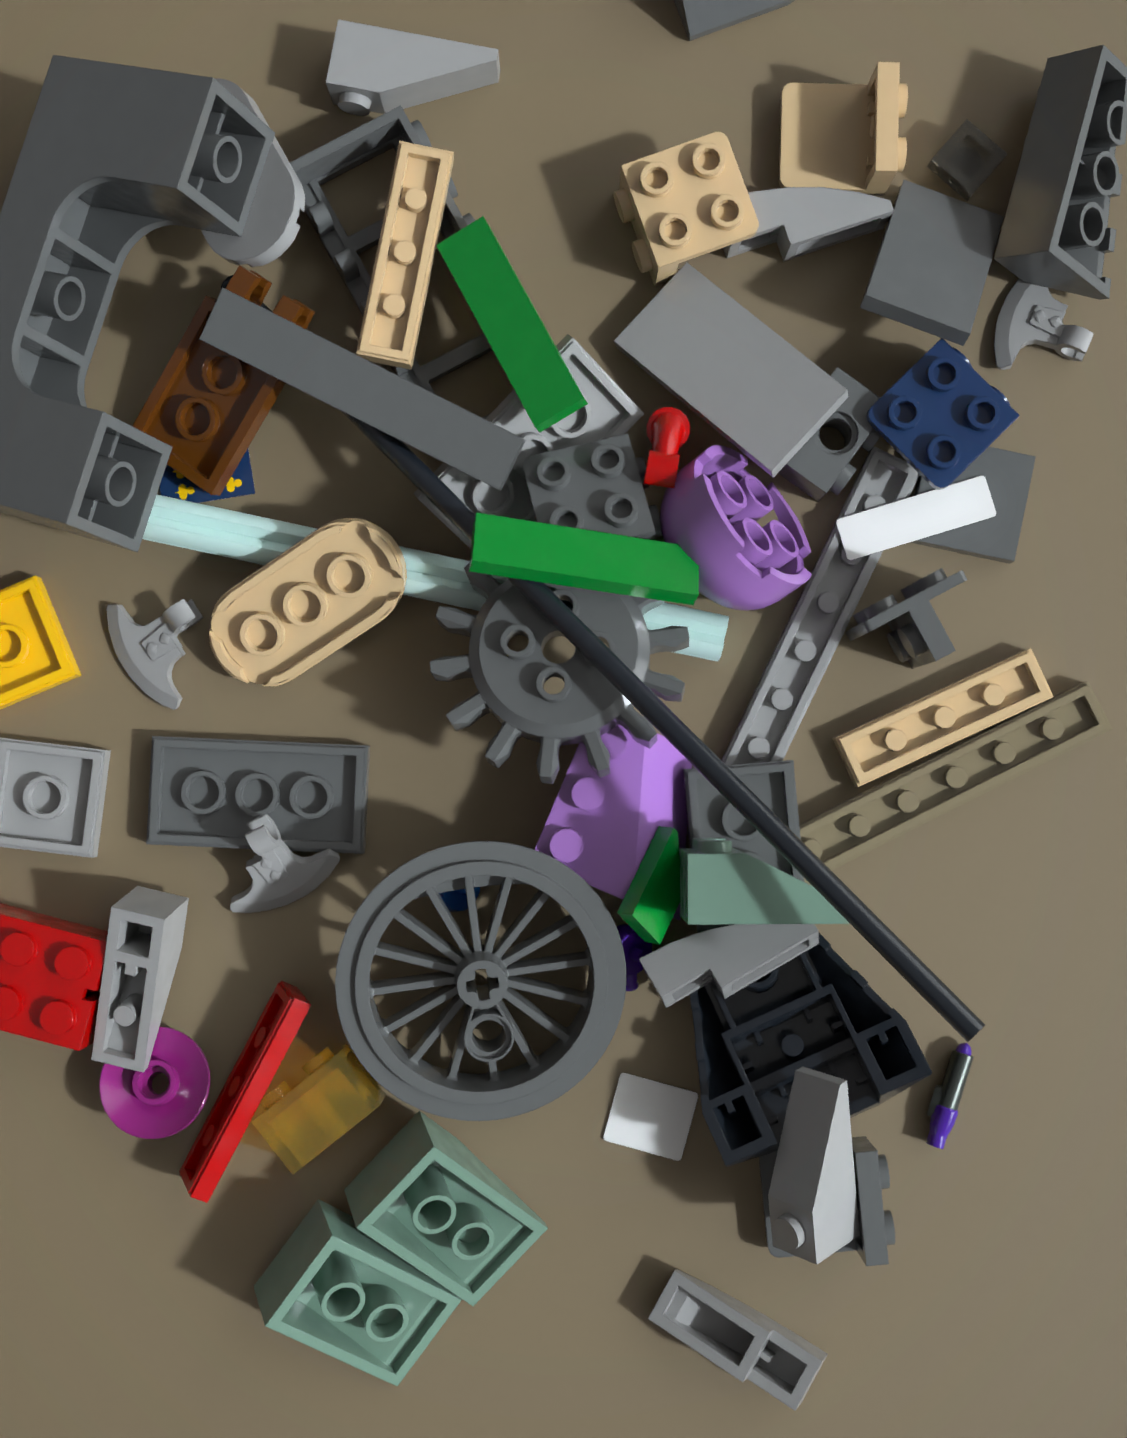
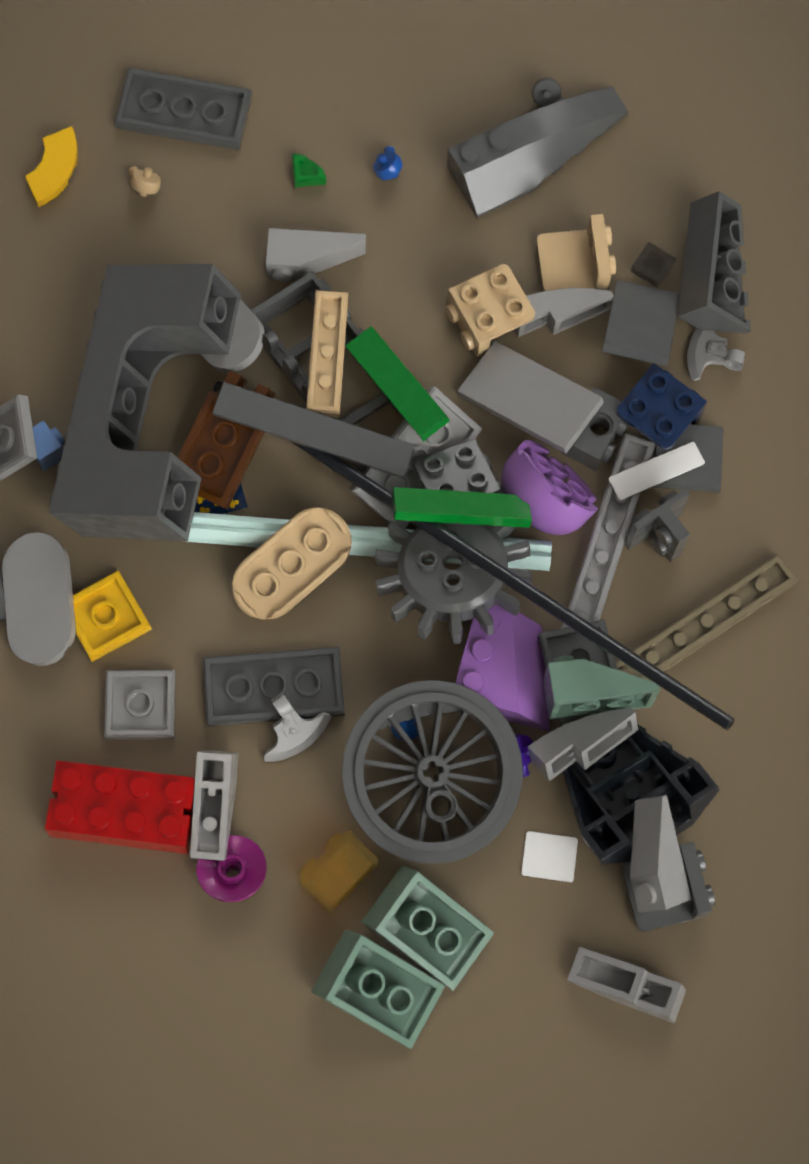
camera: 10 degrees left, 15 degrees down
(152, 649) = (195, 607): light grey piece -> none
(243, 1091) = (288, 867): red tile -> none
(655, 888) = (531, 705): green tile -> none
(667, 432) = (498, 436): red piece -> none
(943, 717) = (692, 588): tan tile -> none
(948, 1095) = (734, 819): piece -> none

